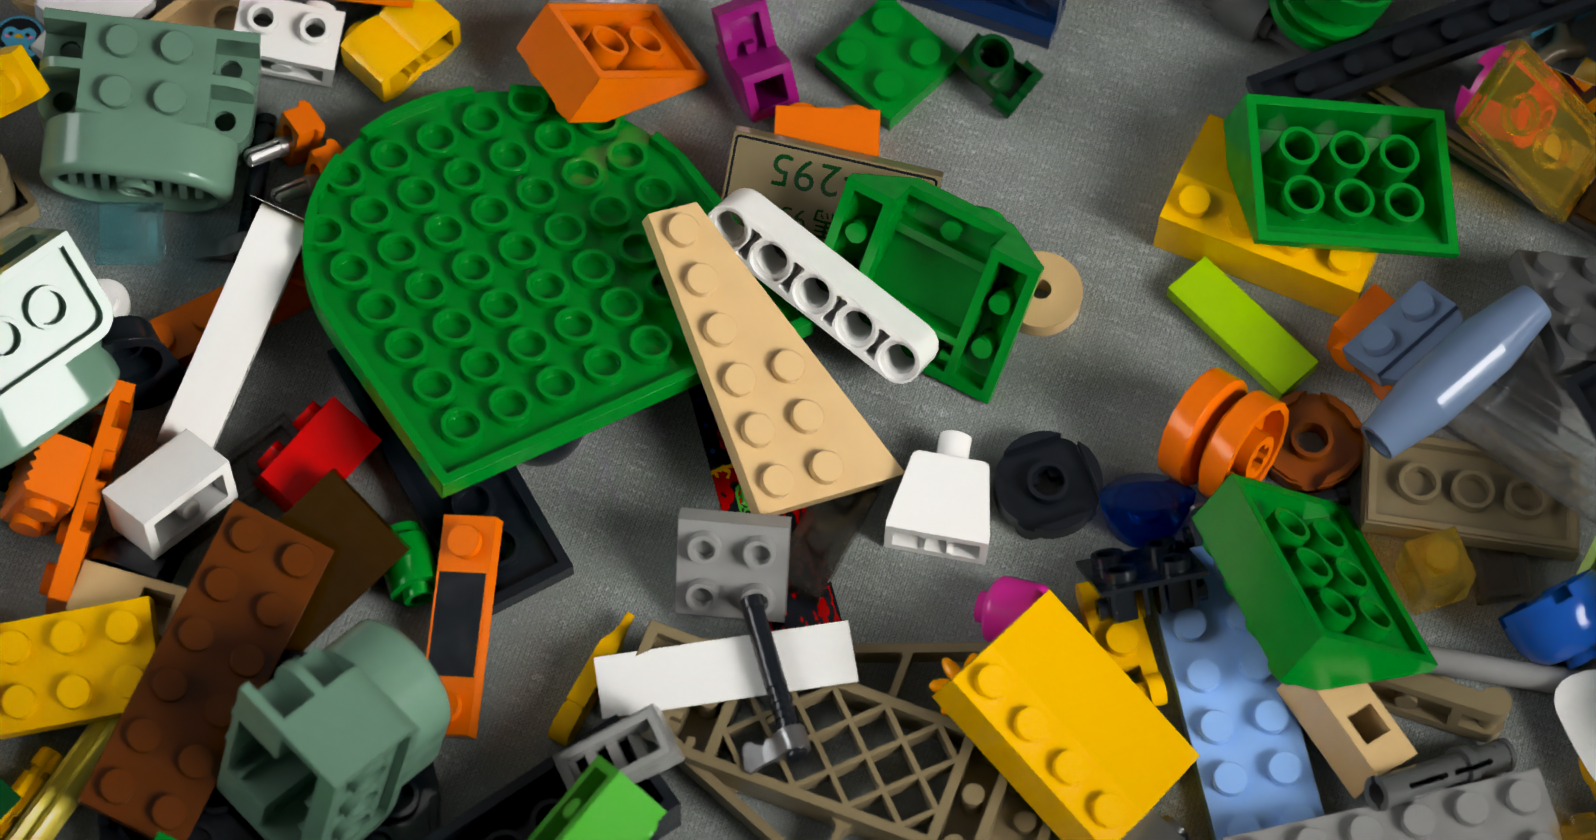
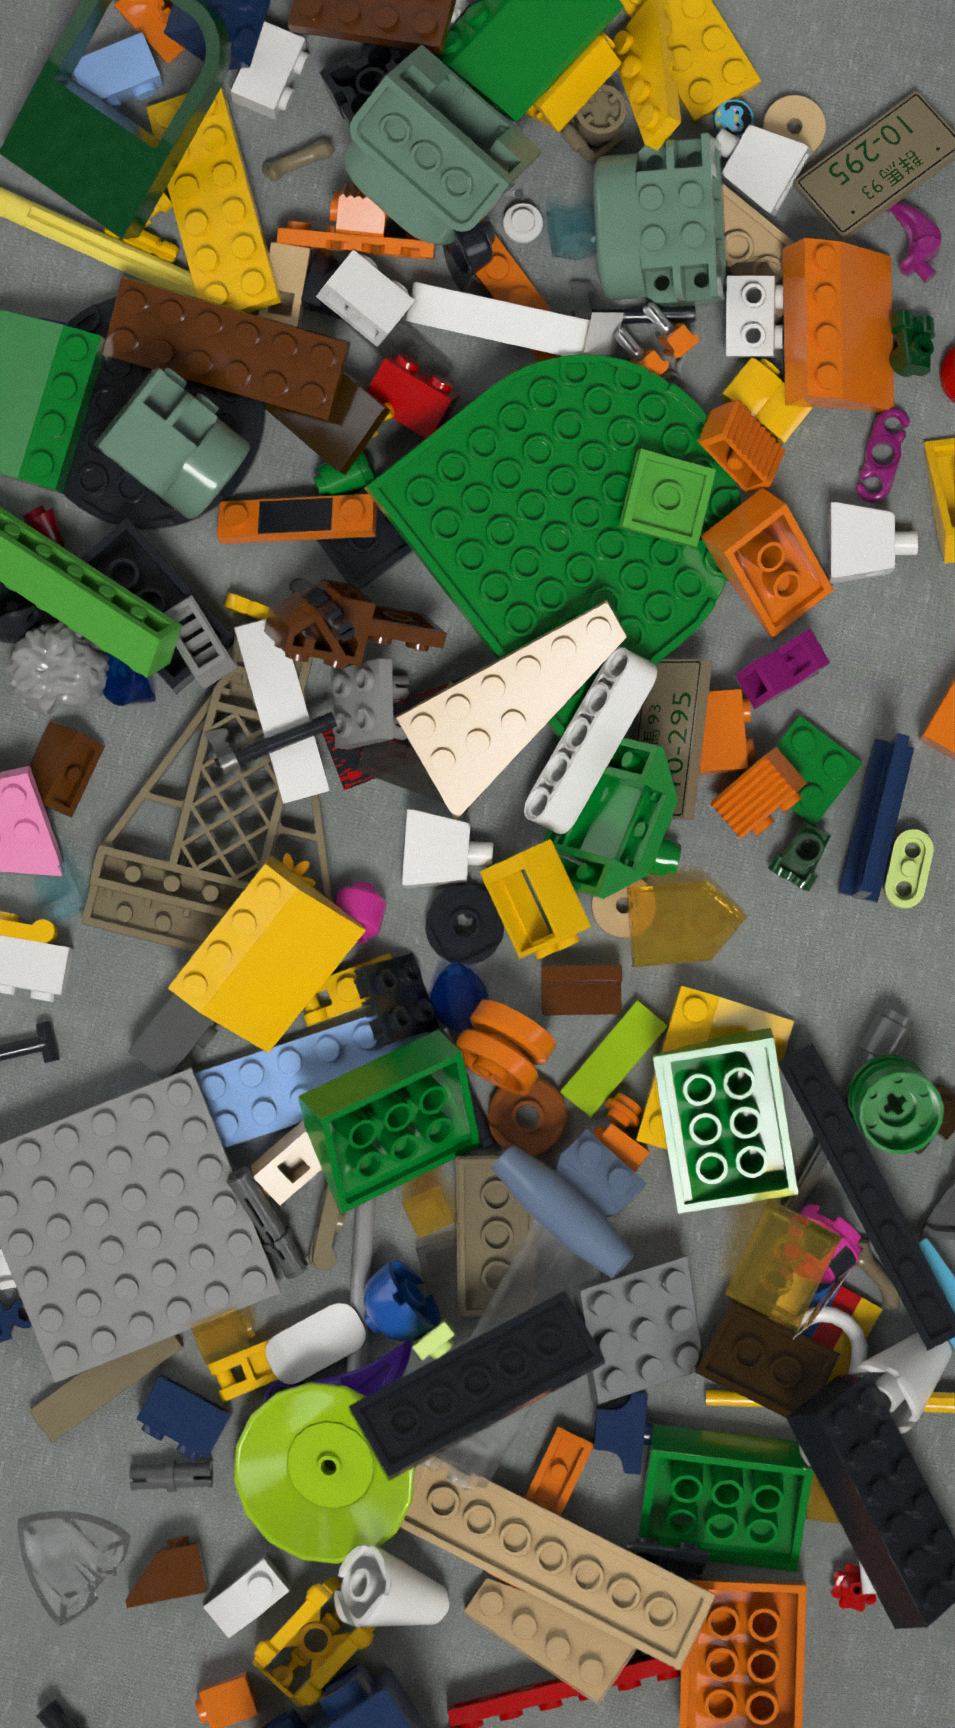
camera: 85 degrees right, 20 degrees up
(457, 65) = (742, 446): none -> orange brick
(513, 151) = (667, 498): none -> bright green plate
(620, 569) = (336, 620): none -> reddish brown piece
(915, 102) = (759, 793): none -> orange brick
(1038, 413) = (518, 907): none -> yellow window
(1073, 225) = (679, 922): none -> clear yellow tile
(1146, 355) = (581, 990): none -> reddish brown panel
(1313, 319) = (623, 1111): none -> orange plate

